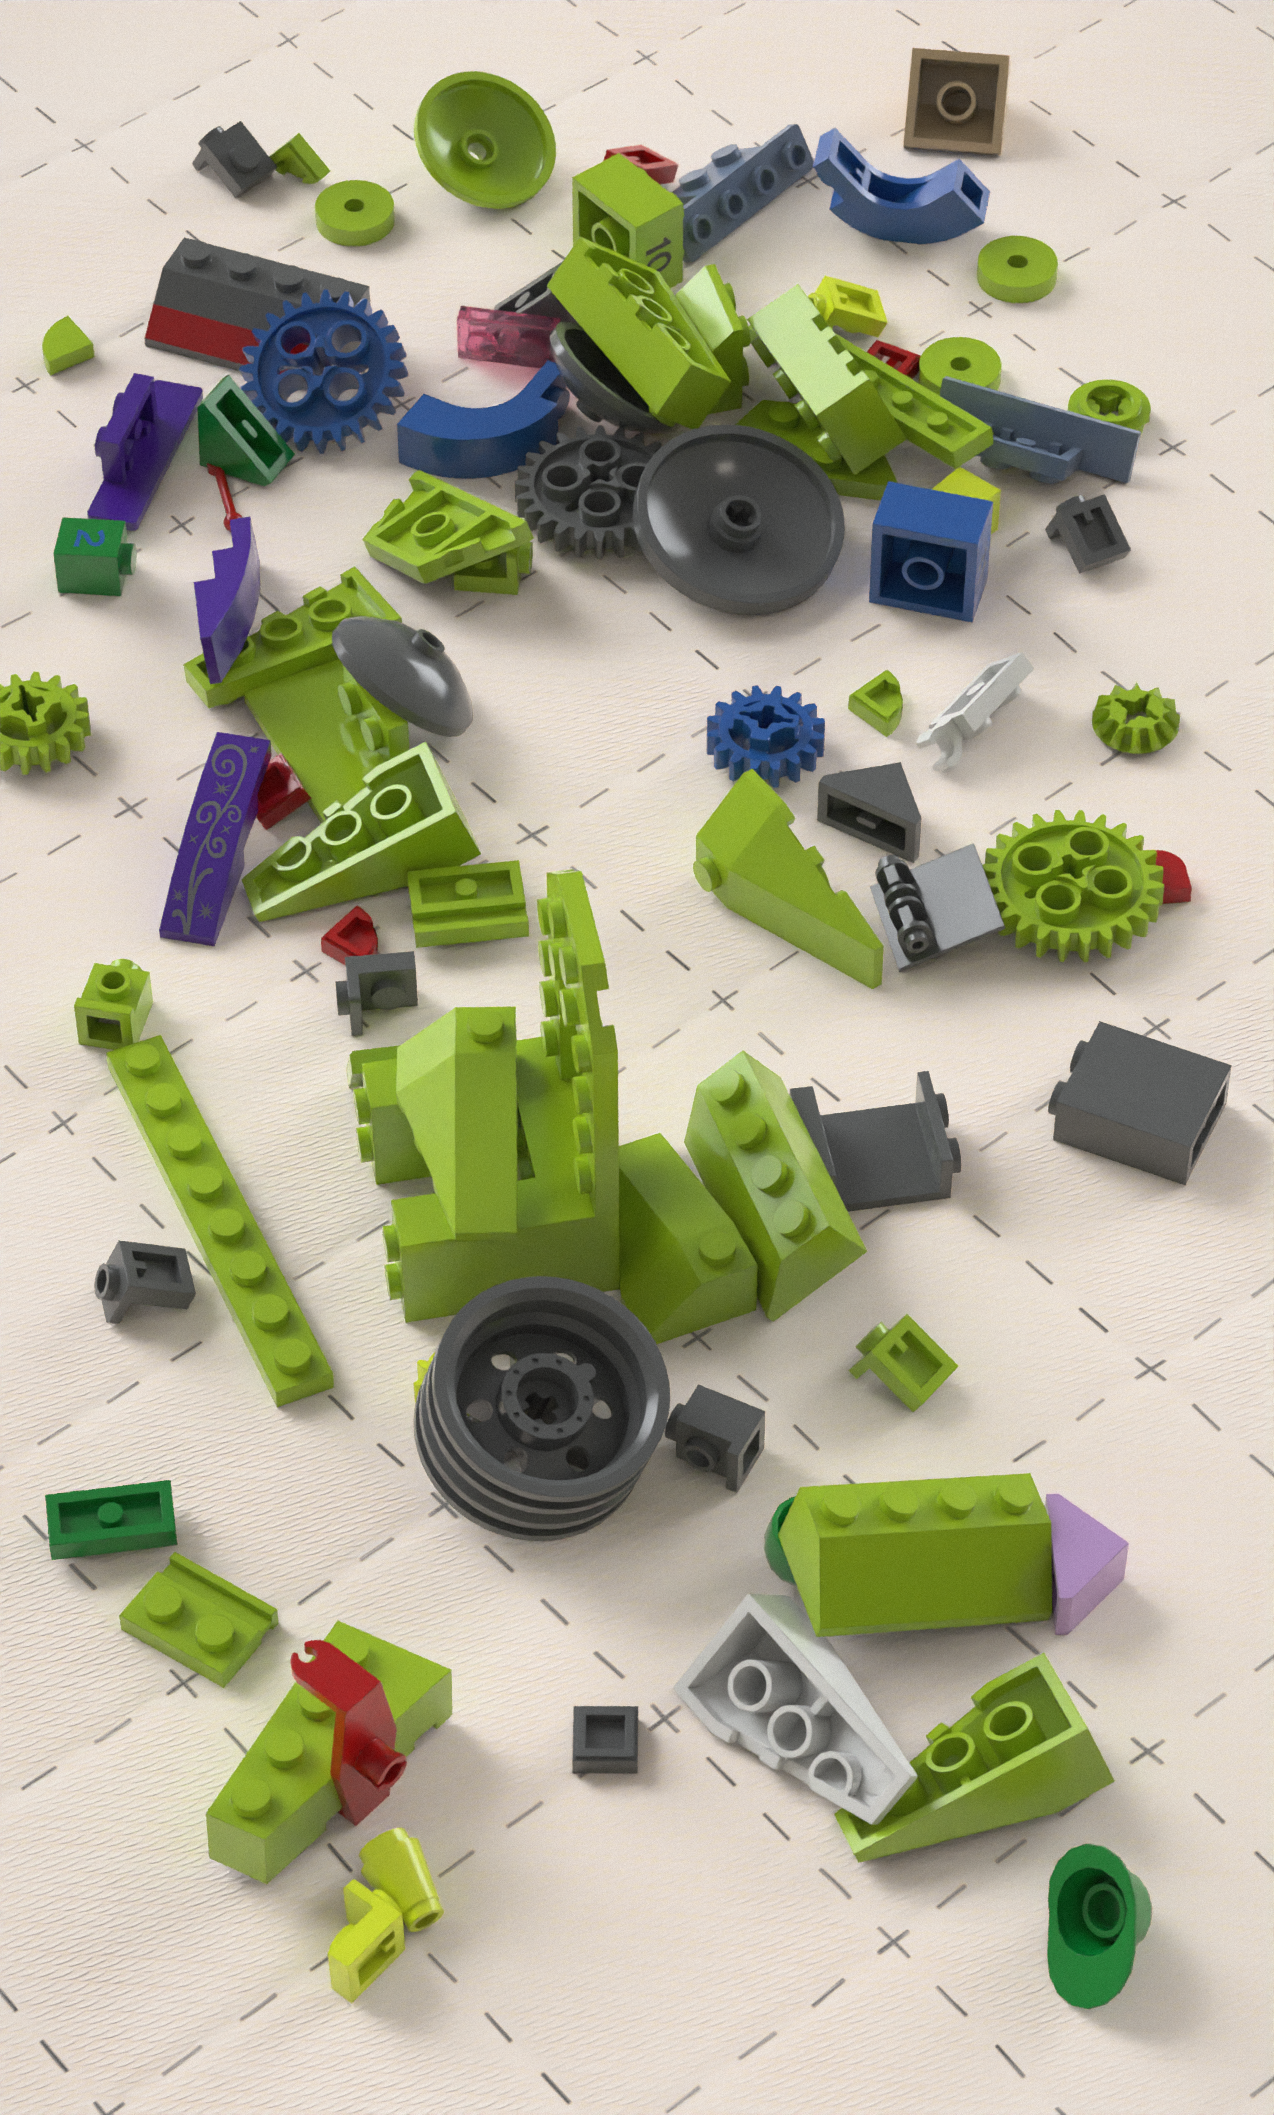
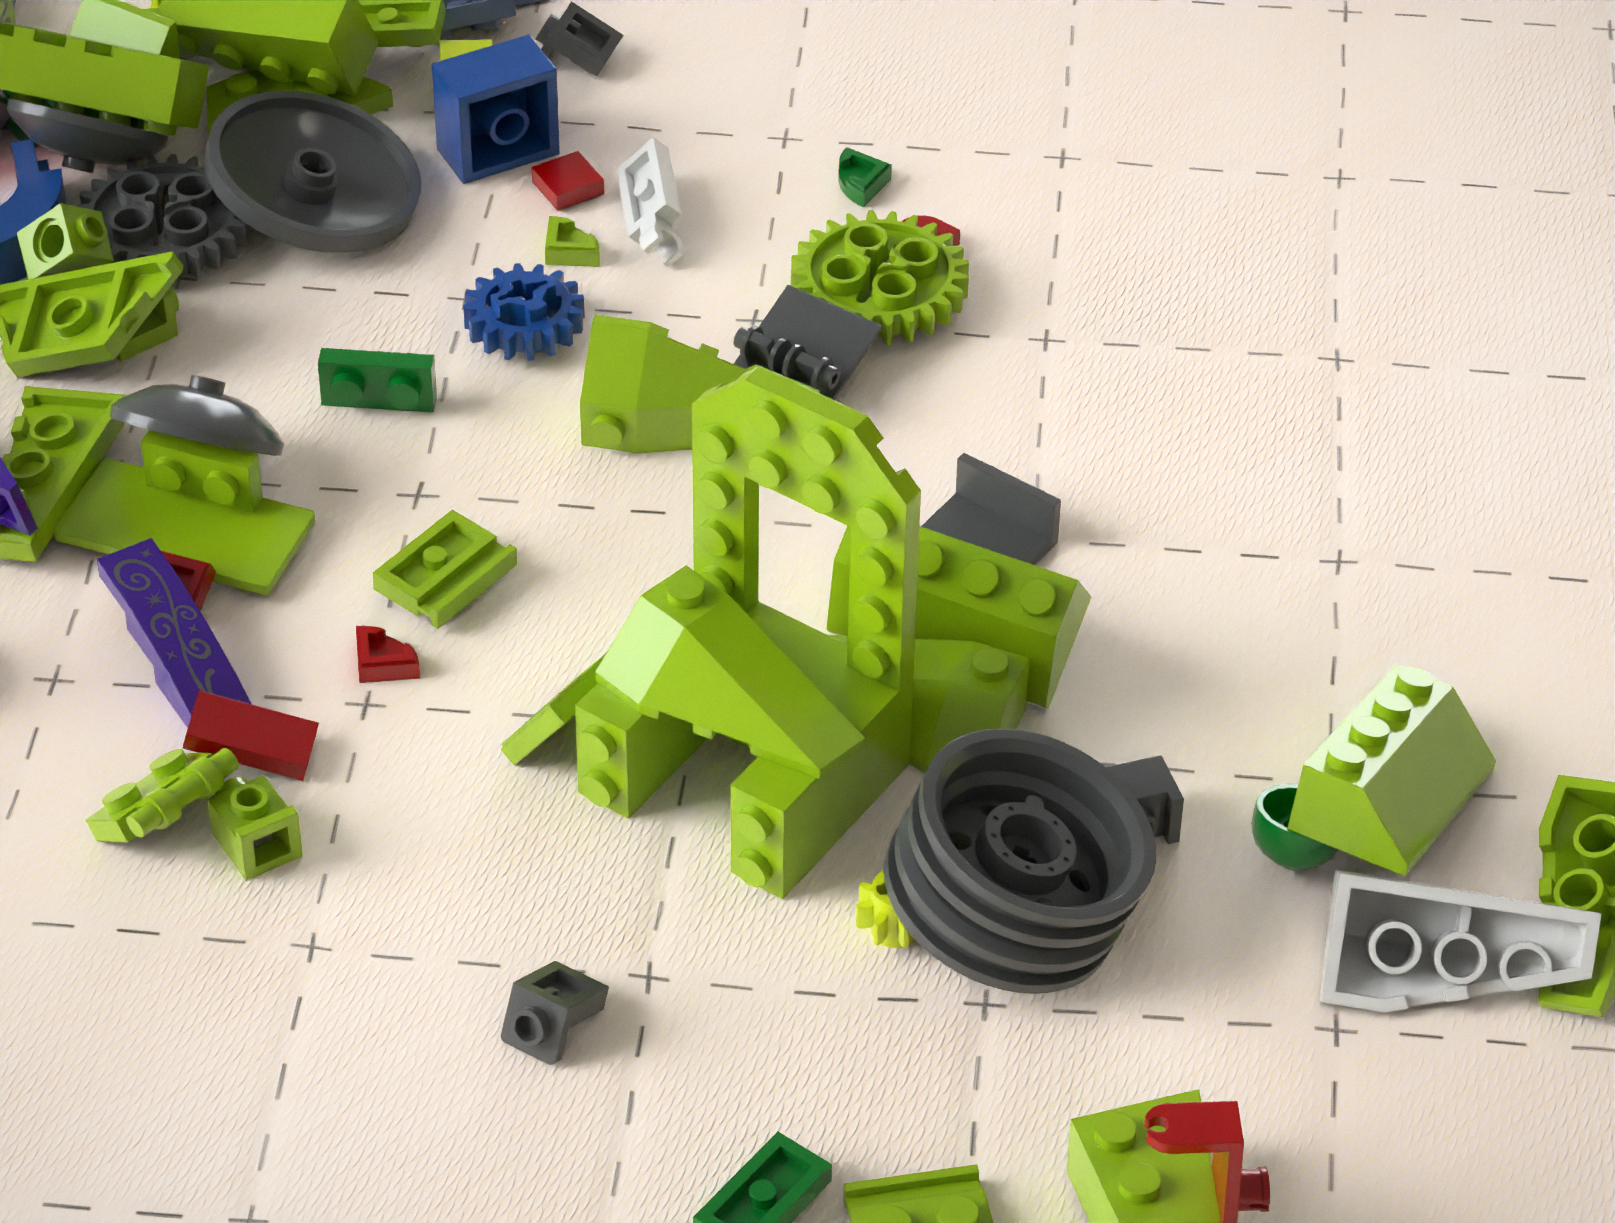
camera: 45 degrees left, 5 degrees down
(98, 937) = (160, 796): none -> lime plate
(188, 938) = (252, 733): none -> red tile
(220, 1222) = (543, 924): lime plate -> none
(366, 846) = (312, 567): lime wedge -> none
(376, 983) = (454, 670): dark grey bracket -> none
(490, 468) = (64, 241): none -> lime brick
(594, 722) = (377, 380): none -> green plate
(605, 1739) = (1323, 1073): dark grey tile -> none
(873, 807) = (683, 303): dark grey slope -> none
(904, 1361) = (1188, 660): lime bracket -> none
(942, 648) = (567, 180): none -> red tile
(1085, 1562) = (1494, 706): lavender slope -> none
(1140, 1102) = (1118, 387): dark grey brick -> none
(1143, 733) = (751, 153): lime gear -> none
(1179, 792) = (862, 176): none -> green tile

